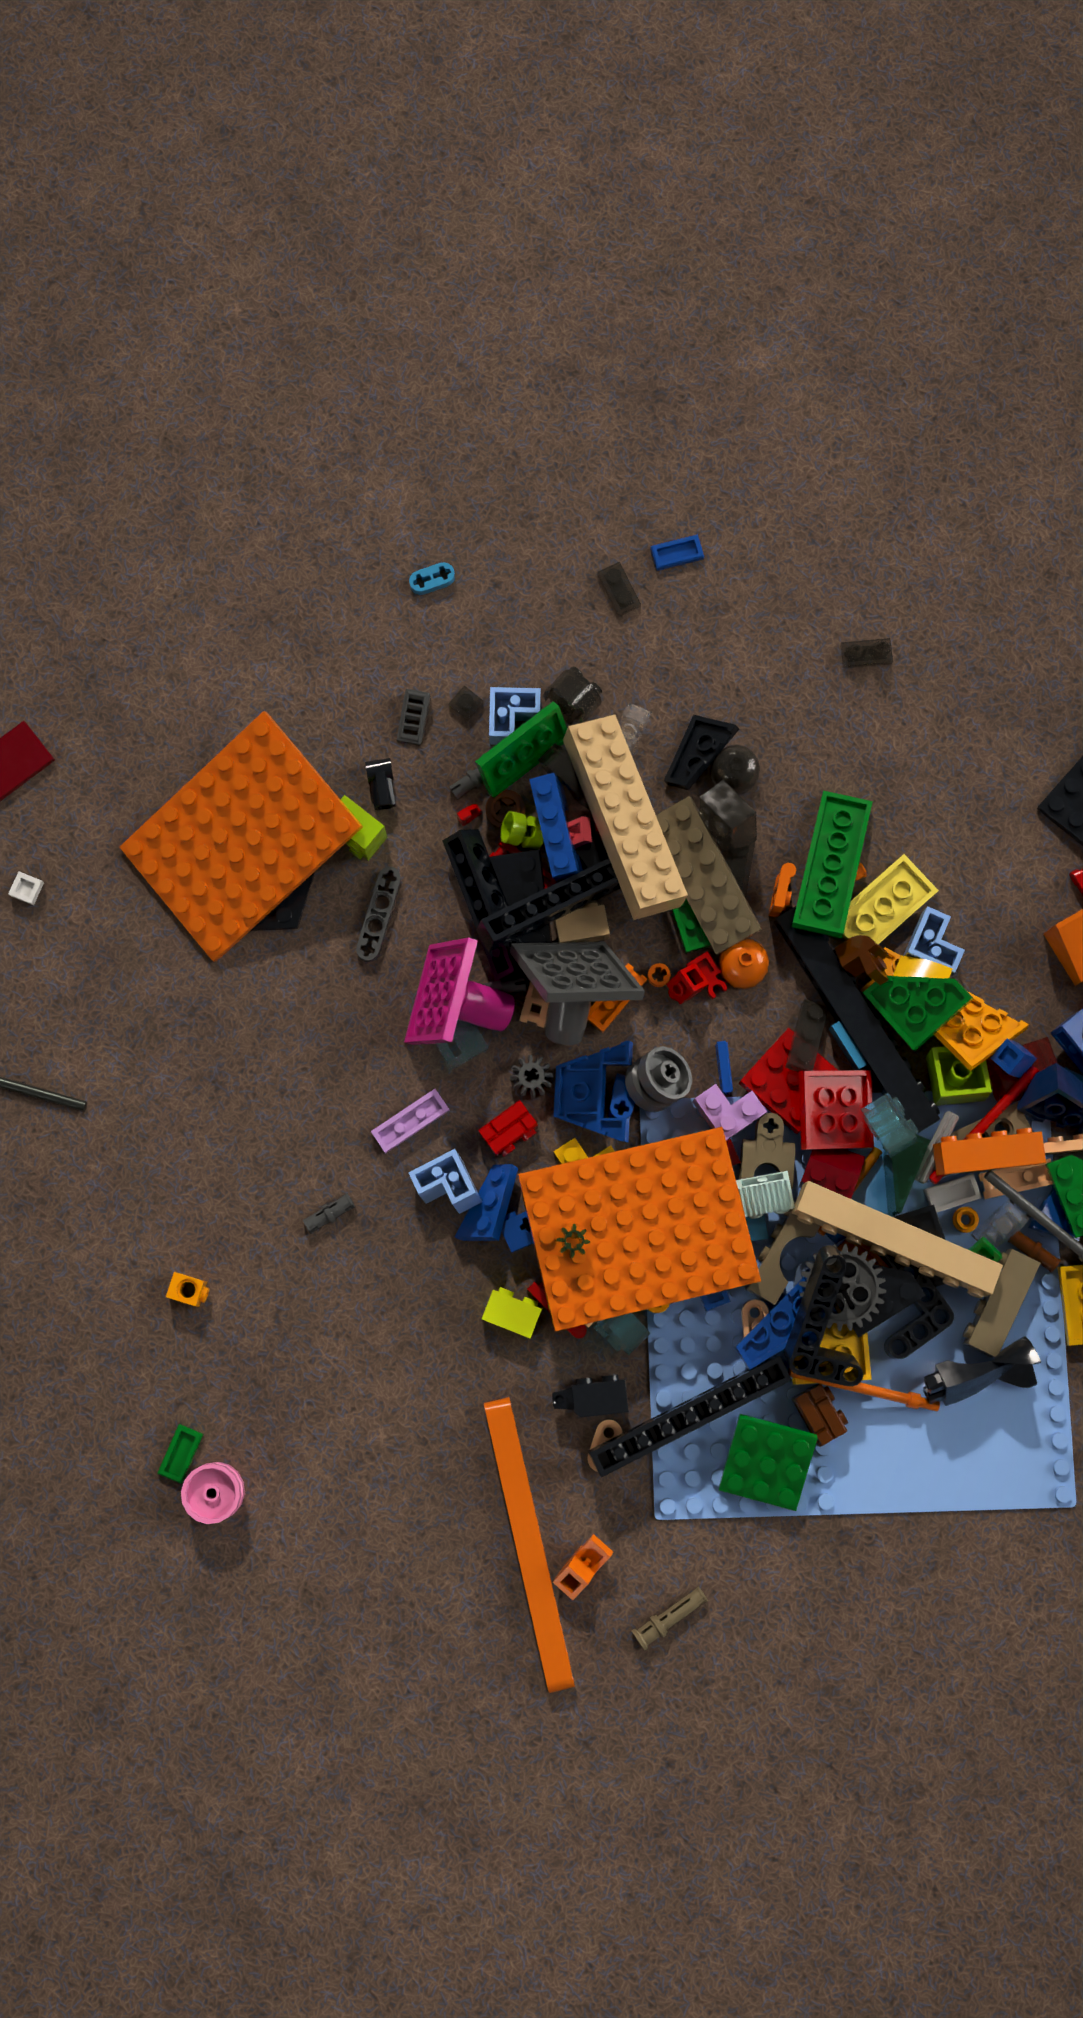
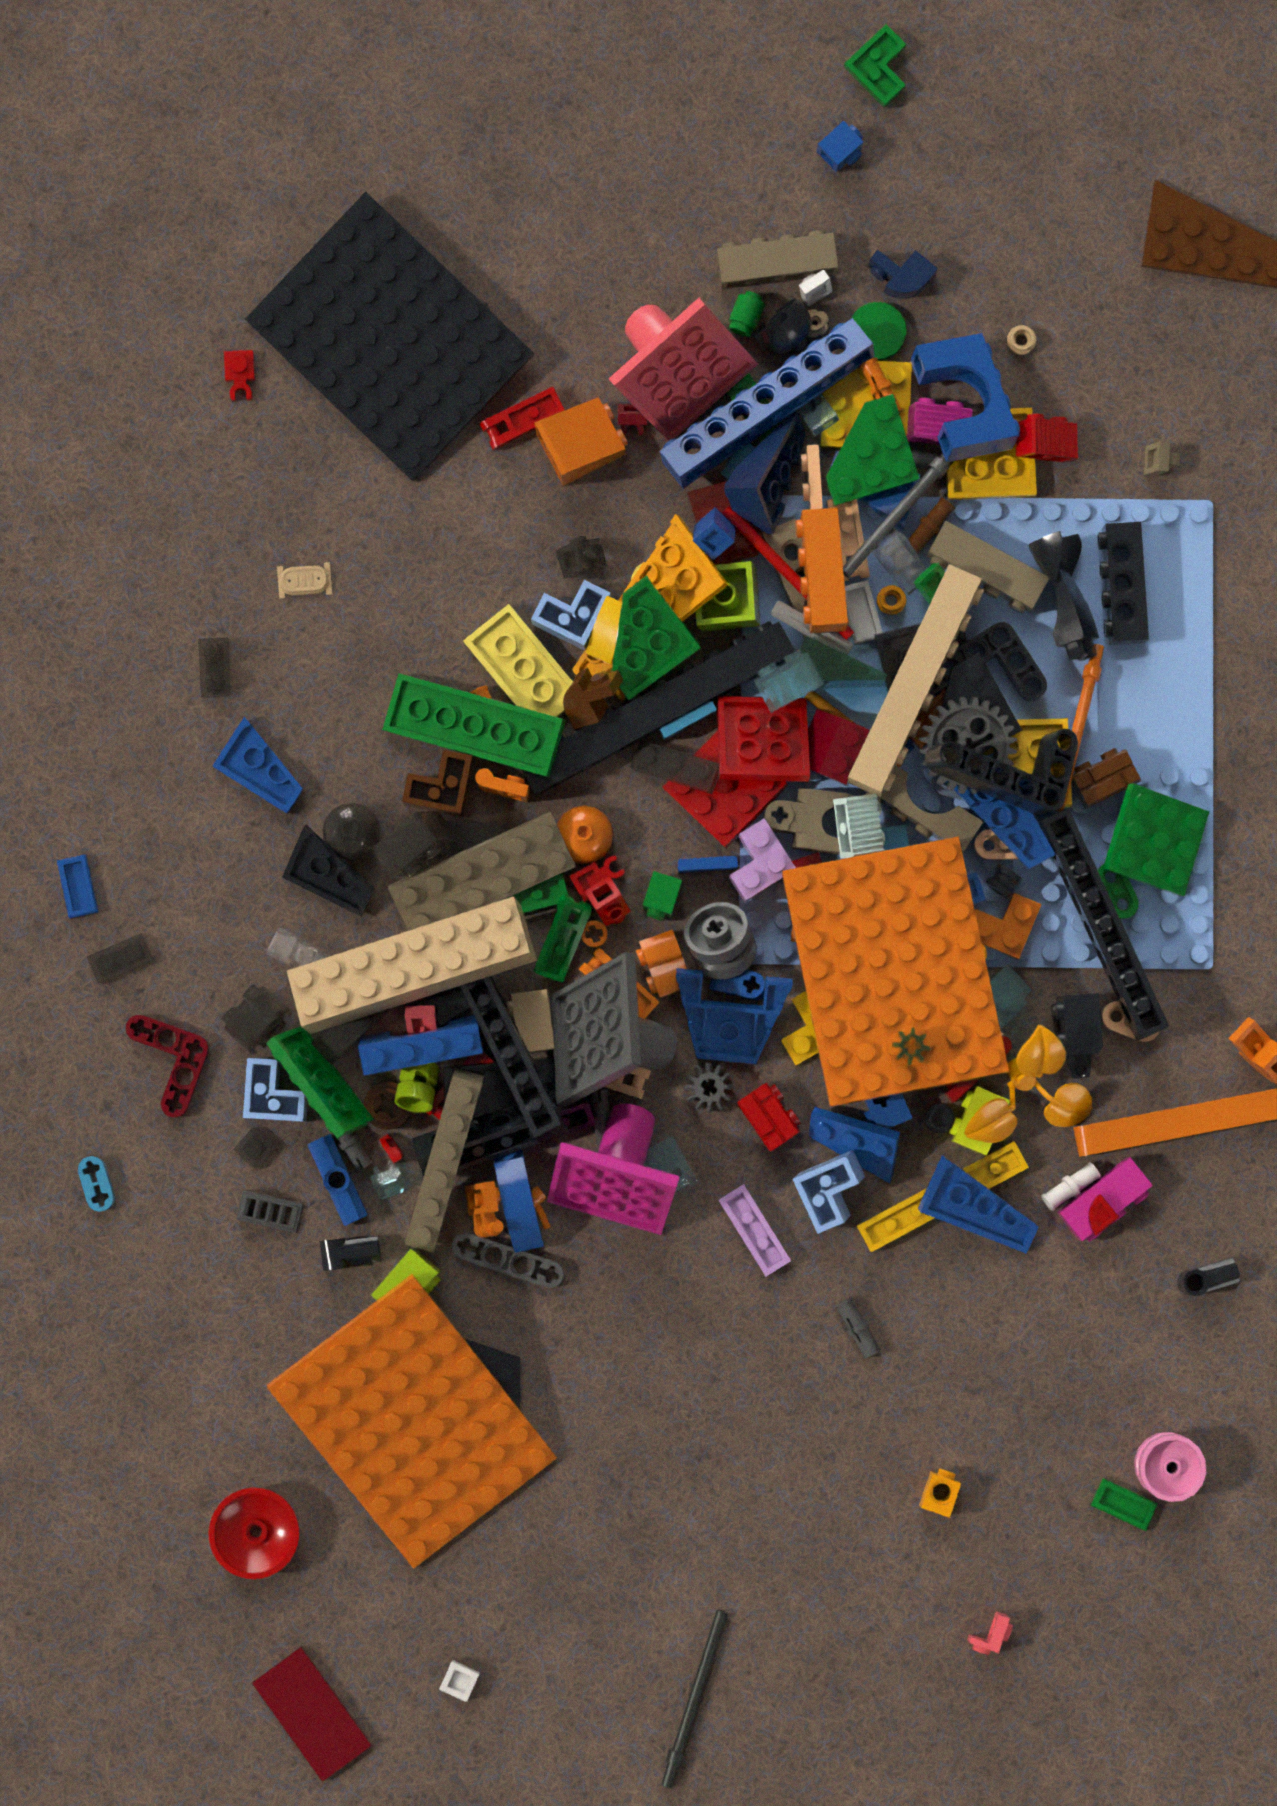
camera: 85 degrees left, 5 degrees up
(68, 1345) = (999, 1632): none -> coral bracket
(137, 701) = (232, 1536): none -> red dish
(381, 1526) = (1210, 1276): none -> black piece
(426, 777) = (329, 1161): none -> blue piece
(426, 888) = (481, 1205): none -> orange plate
(427, 916) = (518, 1201): none -> blue arch
(430, 934) = (539, 1197): none -> orange hand
(432, 1422) = (1100, 1215): none -> red tile
(436, 1307) = (972, 1206): none -> blue wing
(441, 812) = (388, 1182): none -> clear light blue tile
(444, 1283) = (905, 1215): none -> yellow plate
(446, 1428) = (1118, 1186): none -> dark pink brick
(457, 1397) = (1071, 1186): none -> white pin
(485, 856) = (444, 1159): none -> dark tan arch
(512, 1278) = (939, 1118): none -> black plate
(545, 639) = (178, 1049): none -> dark red beam
(570, 1356) = (1037, 1056): none -> light orange plant
(642, 1031) = (662, 957): none -> orange brick
(652, 947) = (562, 939): none -> green plate
(679, 1336) = (1012, 931): none -> orange plate
(694, 1027) = (661, 896): none -> green brick
(720, 1428) = (1120, 889): none -> green plate
(723, 1326) = (1003, 881): none -> black wheel
(774, 845) = (447, 791): none -> reddish brown brick
(784, 691) = (257, 768): none -> blue wing
(945, 723) = (304, 580): none -> tan piece
(982, 949) = (581, 558): none -> clear smoke brick
(1037, 1429) = (1128, 537): none -> black brick

